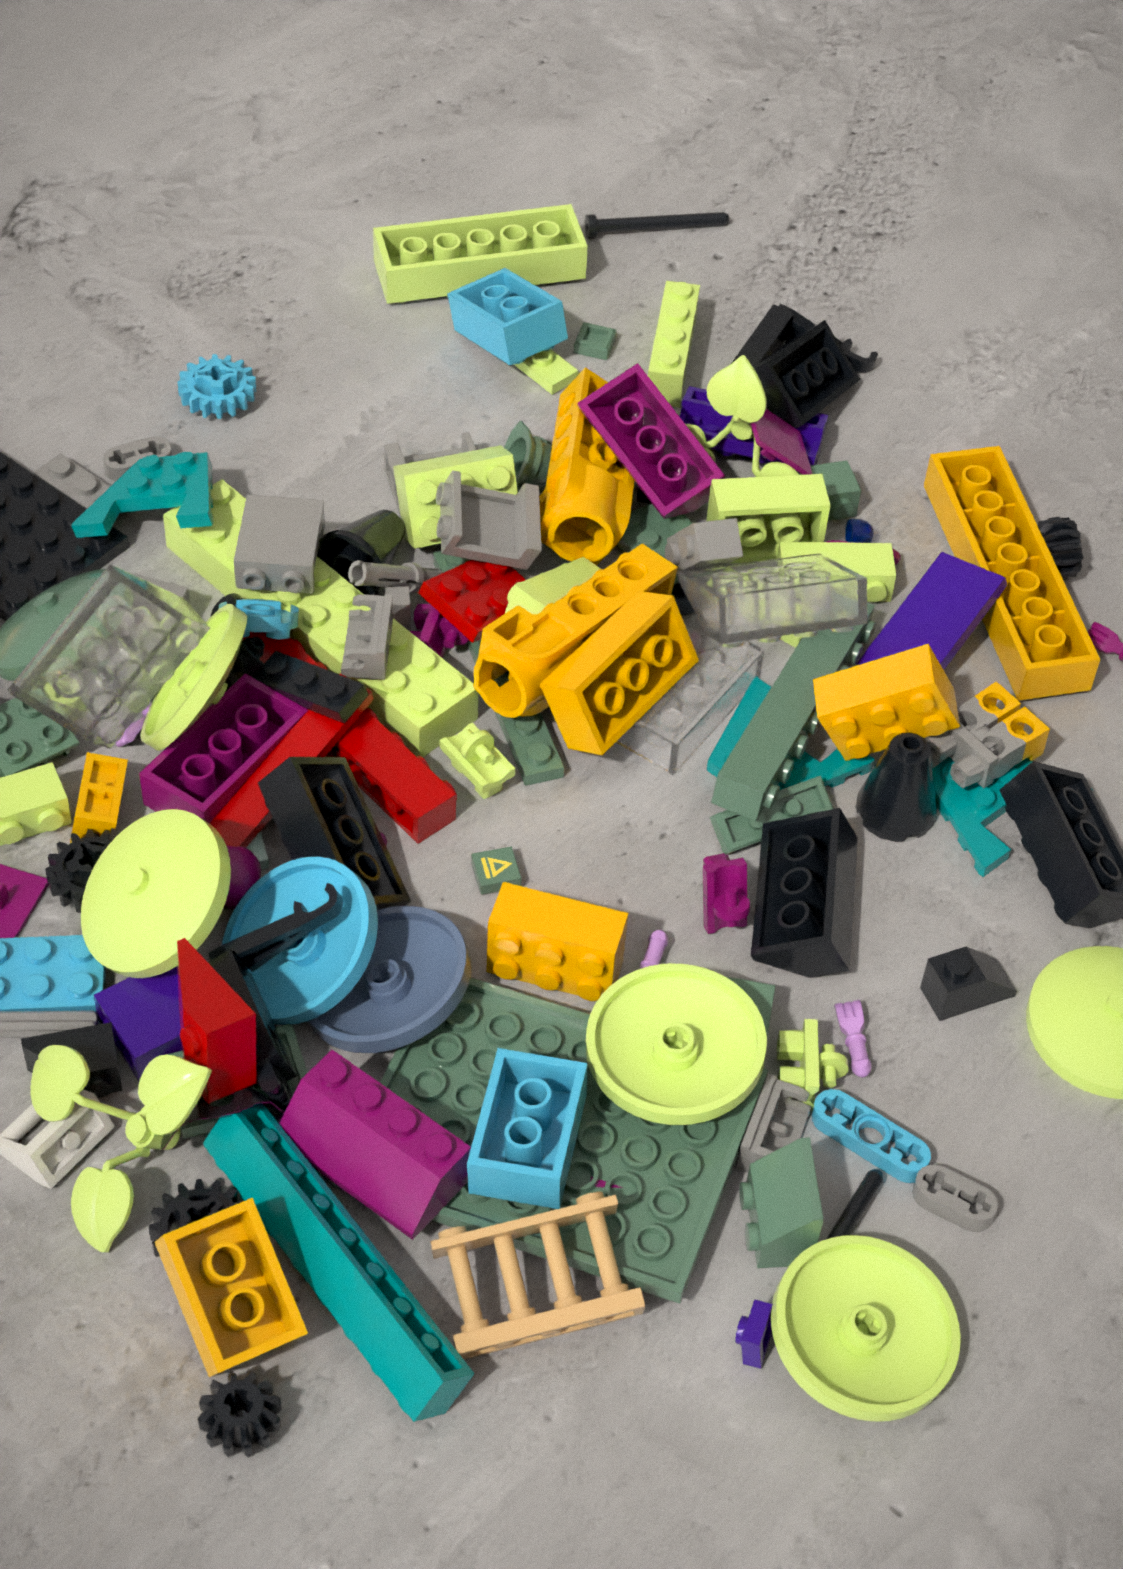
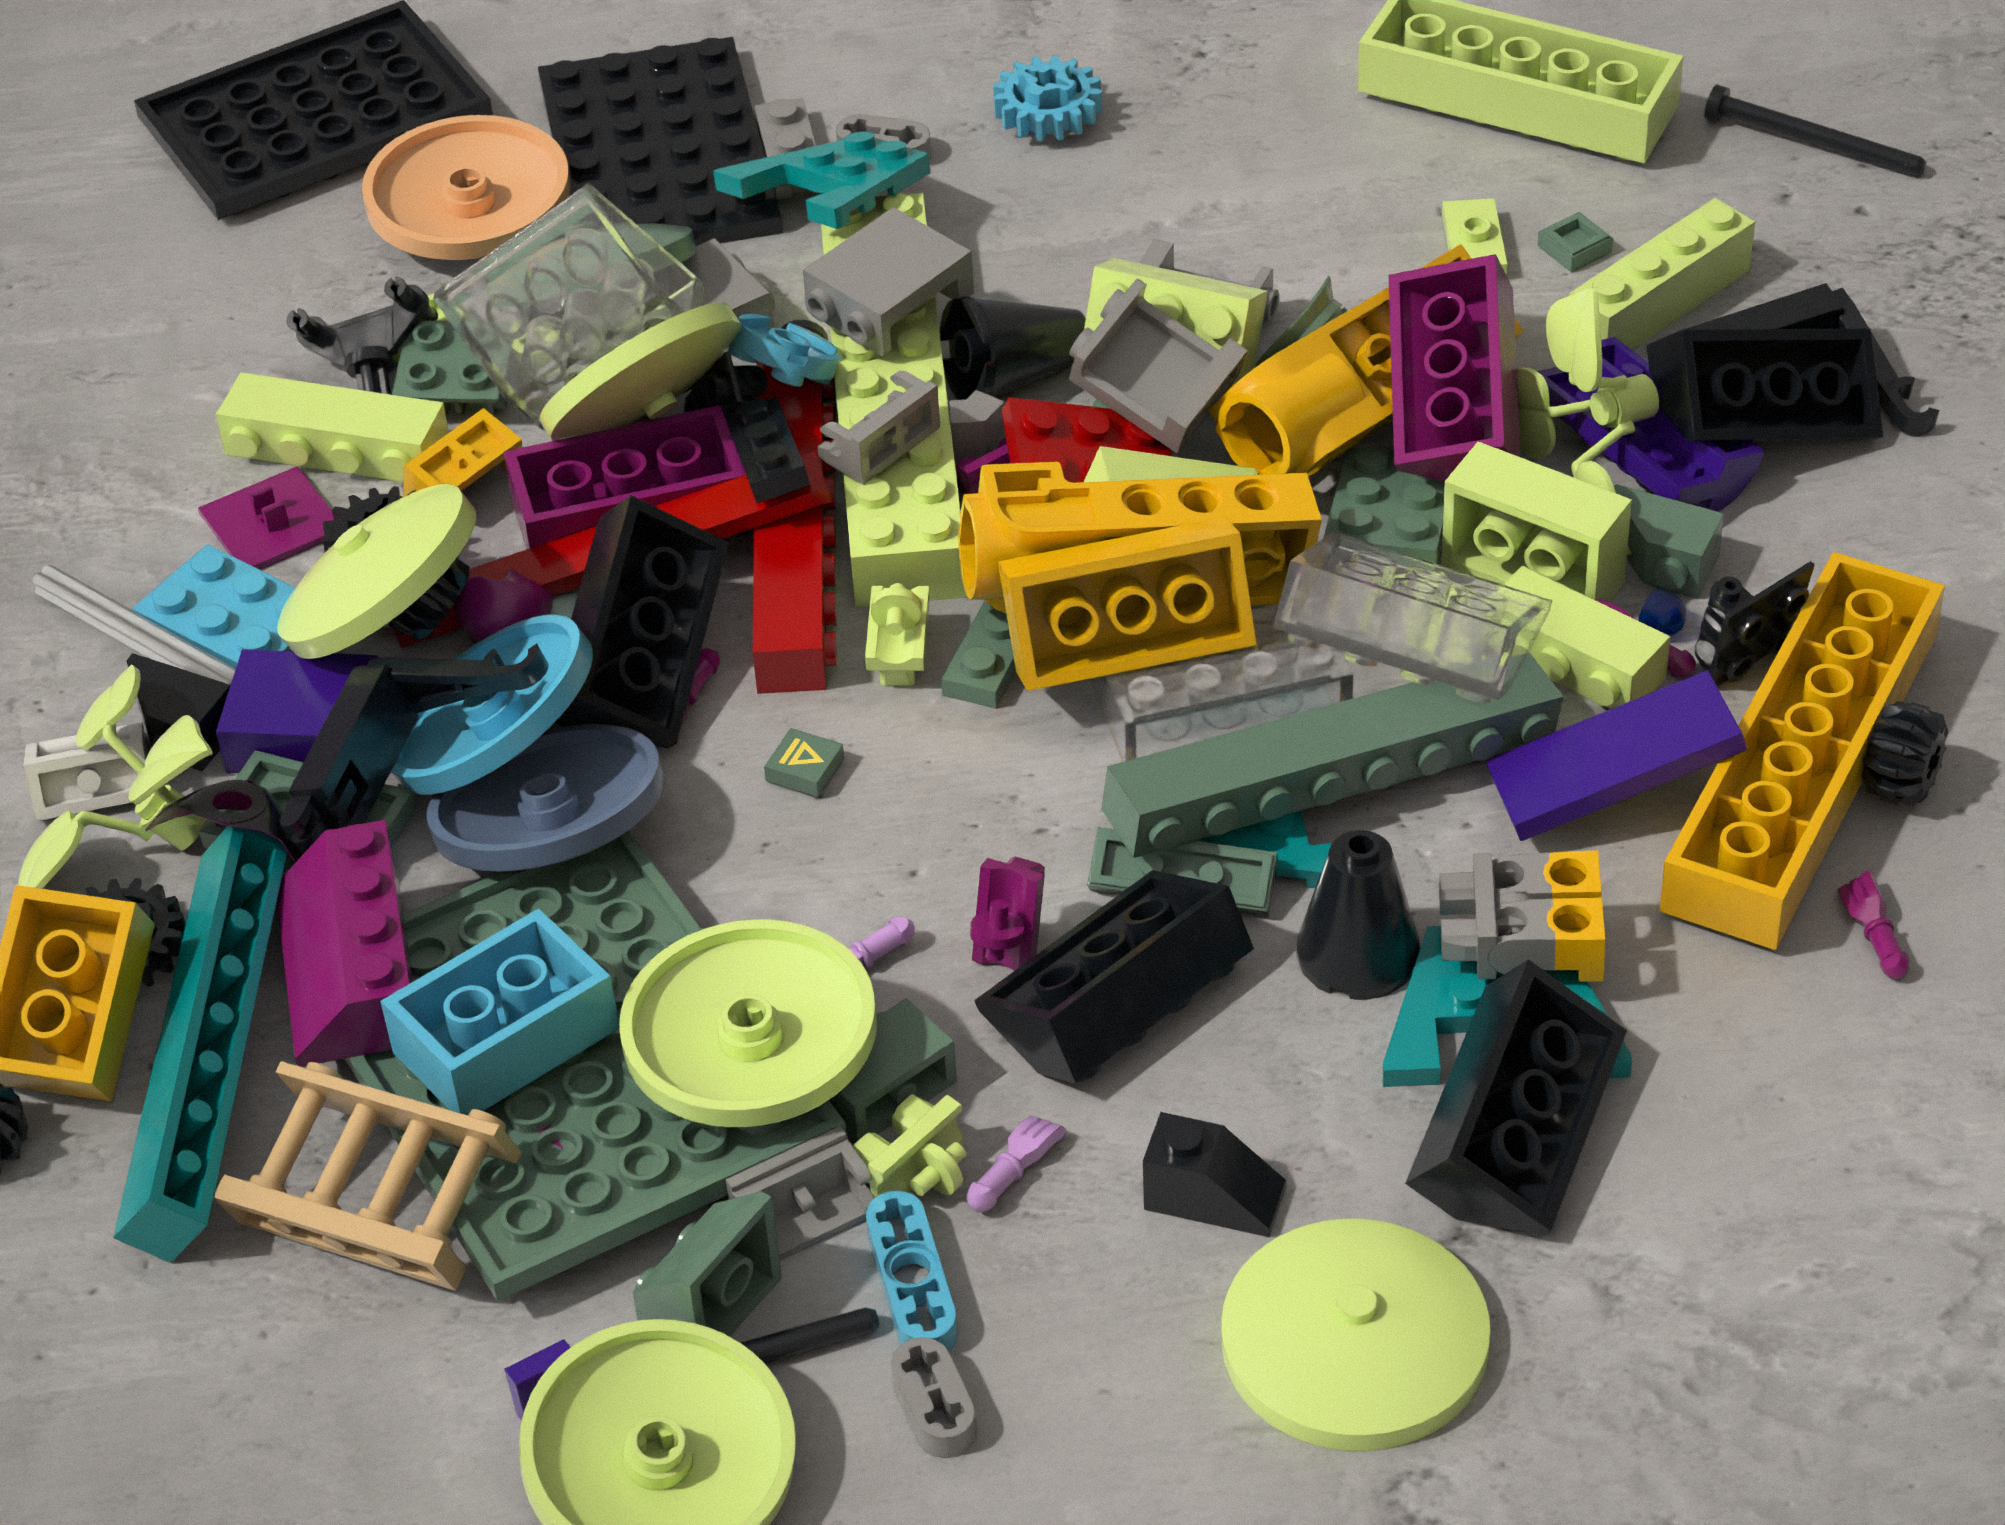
camera: 45 degrees right, 5 degrees down
(215, 1025) = (264, 718): red slope -> none
(390, 575) = (986, 374): light grey pin -> none
(508, 316) = (1462, 158): medium azure brick -> none
(555, 941) = (755, 848): yellow brick -> none
(705, 545) = (1381, 509): light grey brick -> none
(781, 442) = (1629, 435): magenta piece -> none
(885, 698) = (1414, 787): yellow brick -> none
(917, 518) = (1748, 627): none -> black hinge

